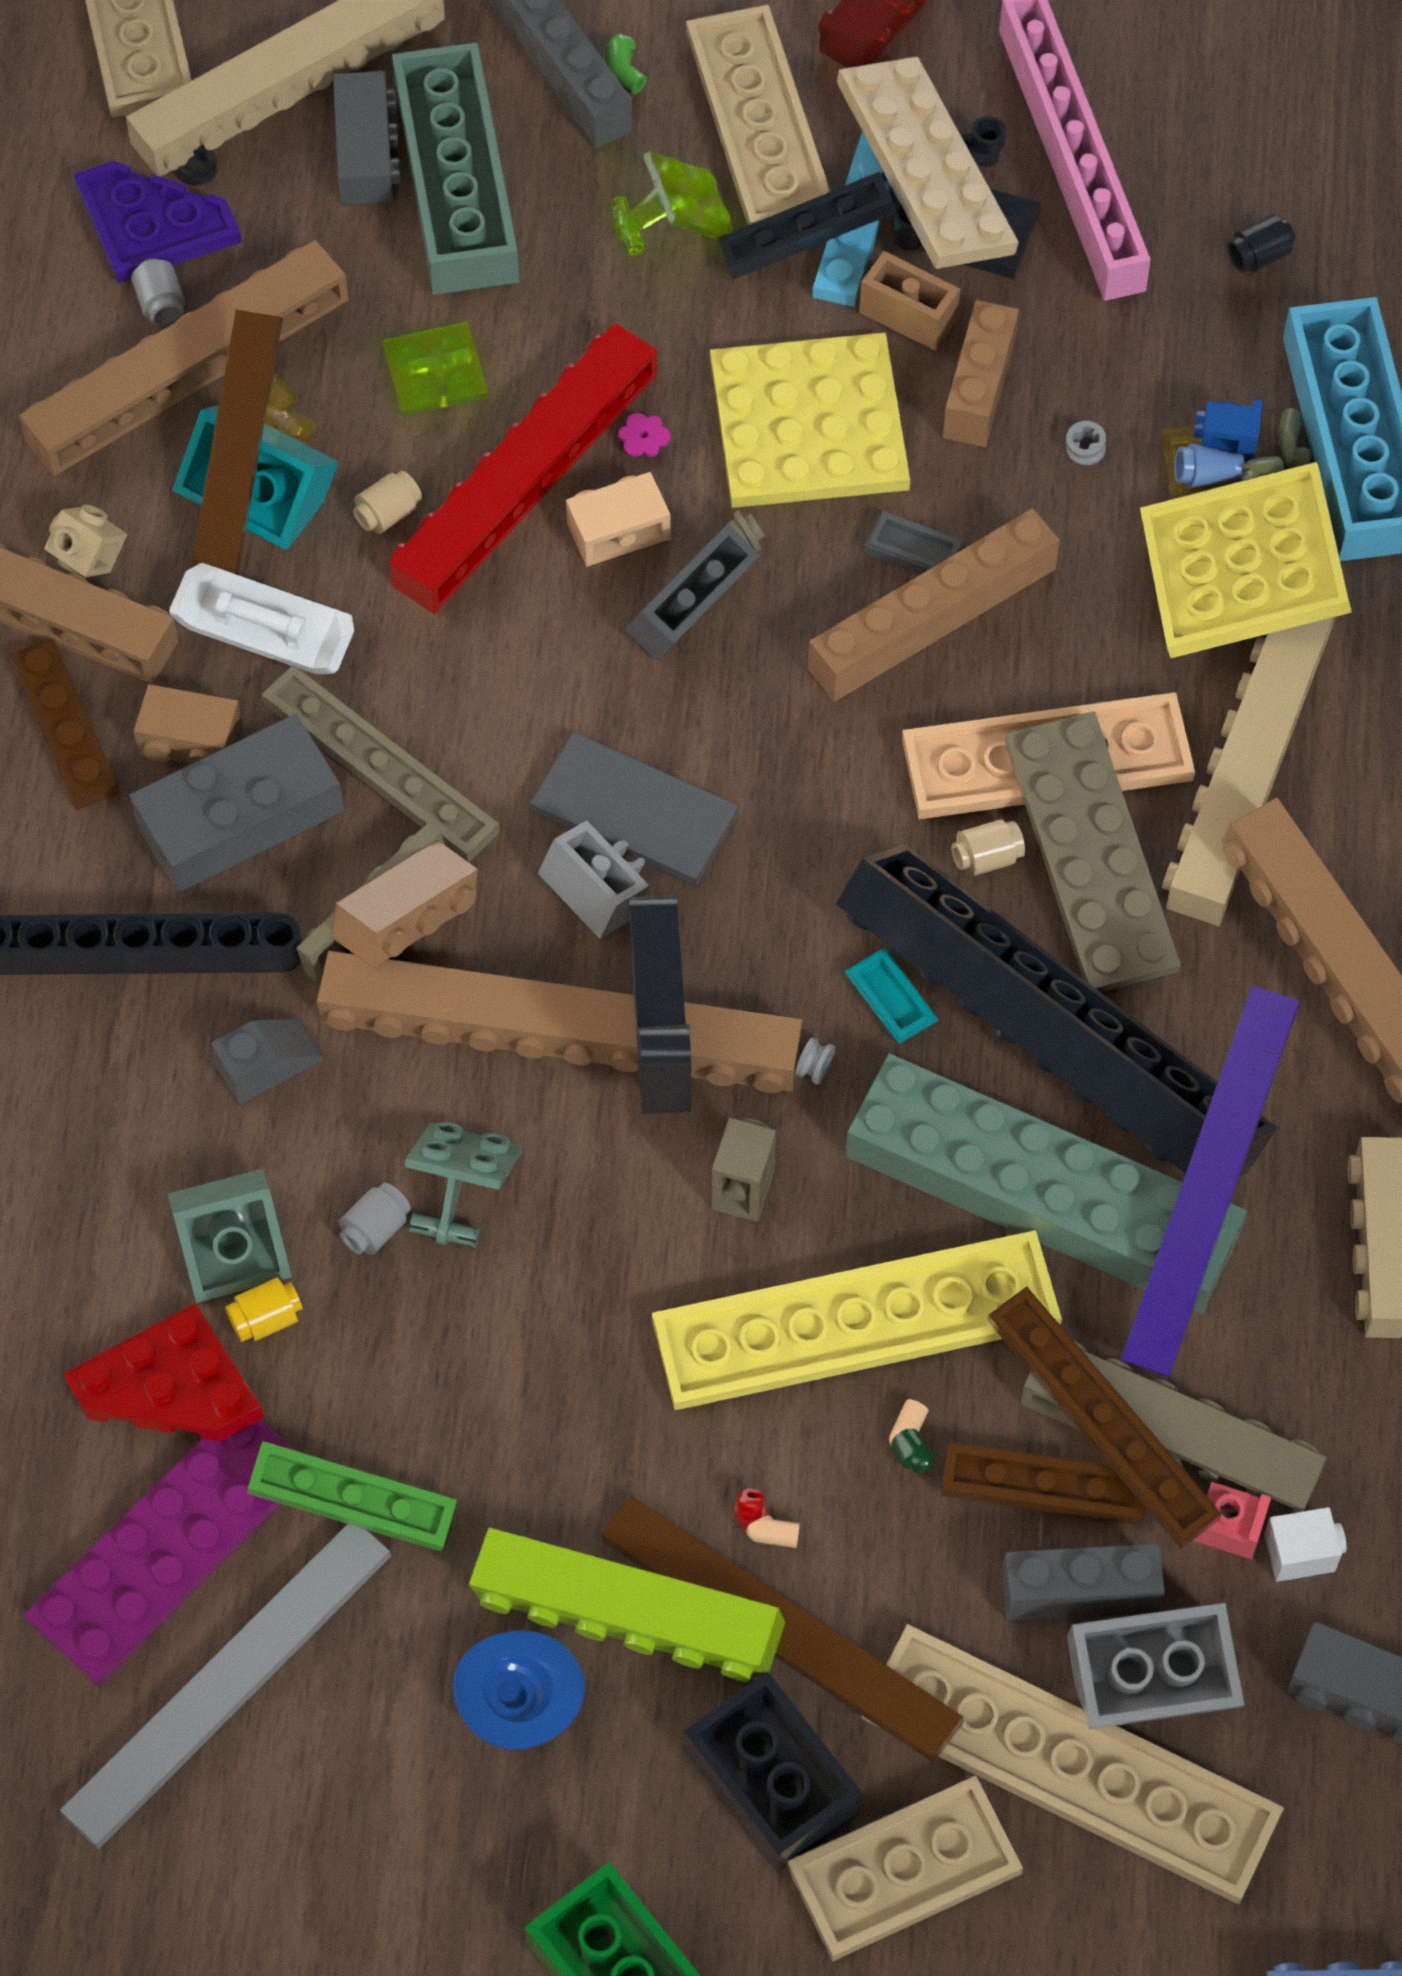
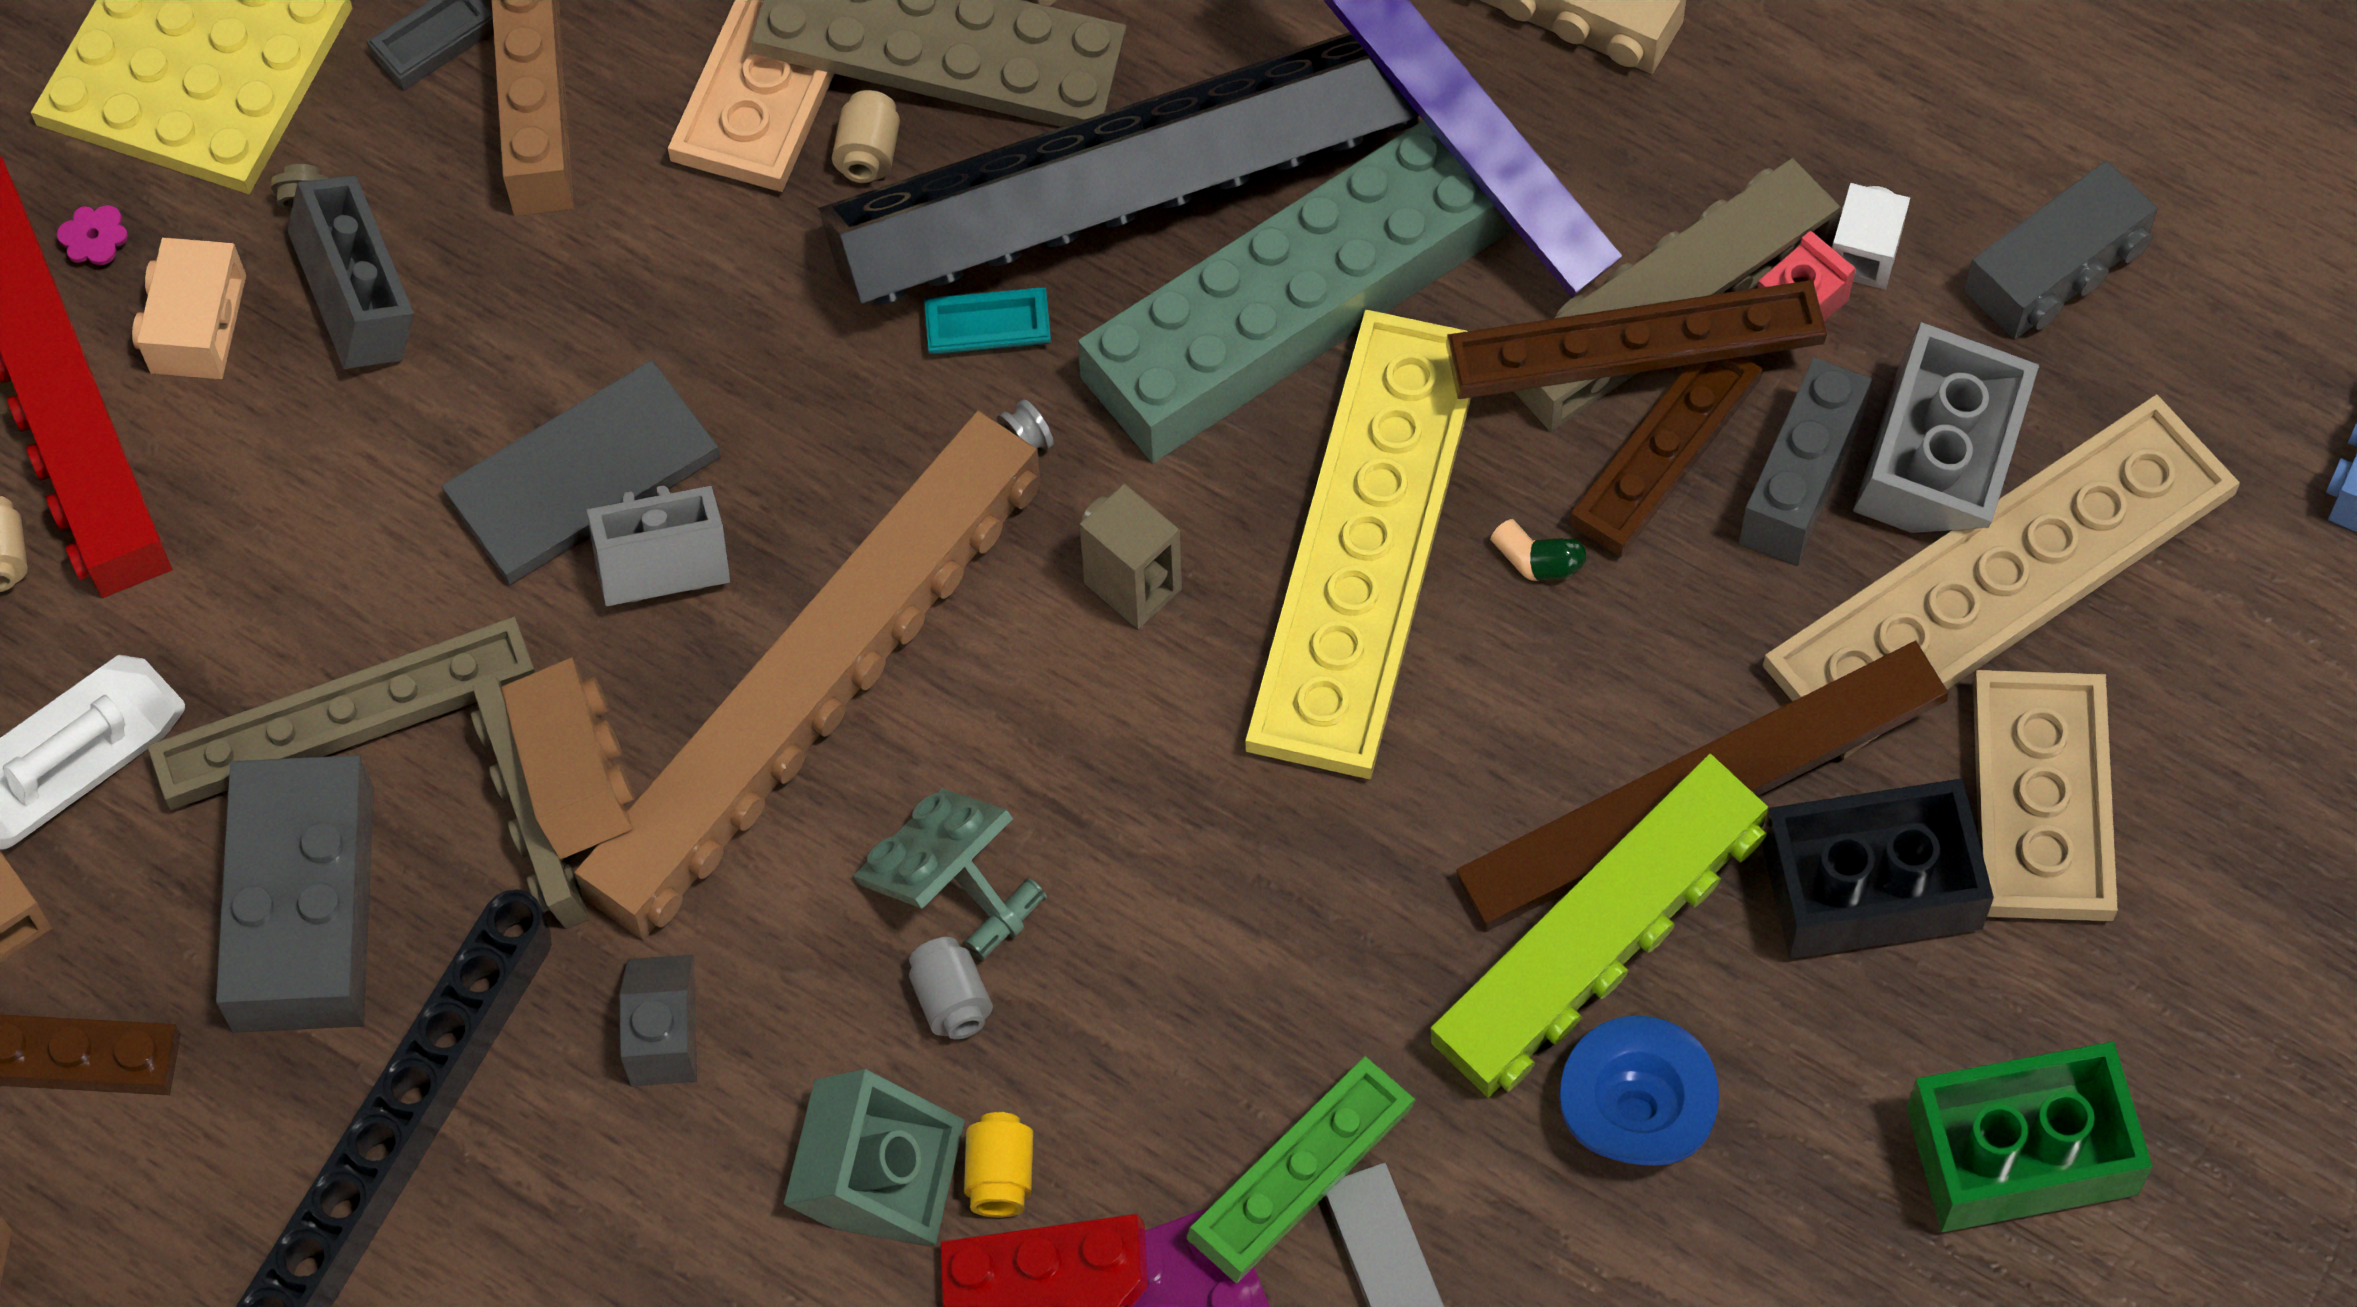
camera: 60 degrees left, 0 degrees up
(185, 725) = (152, 905): medium nougat brick -> none
(659, 1005) = (963, 566): black beam -> none
(759, 1523) = (1559, 755): arm -> none

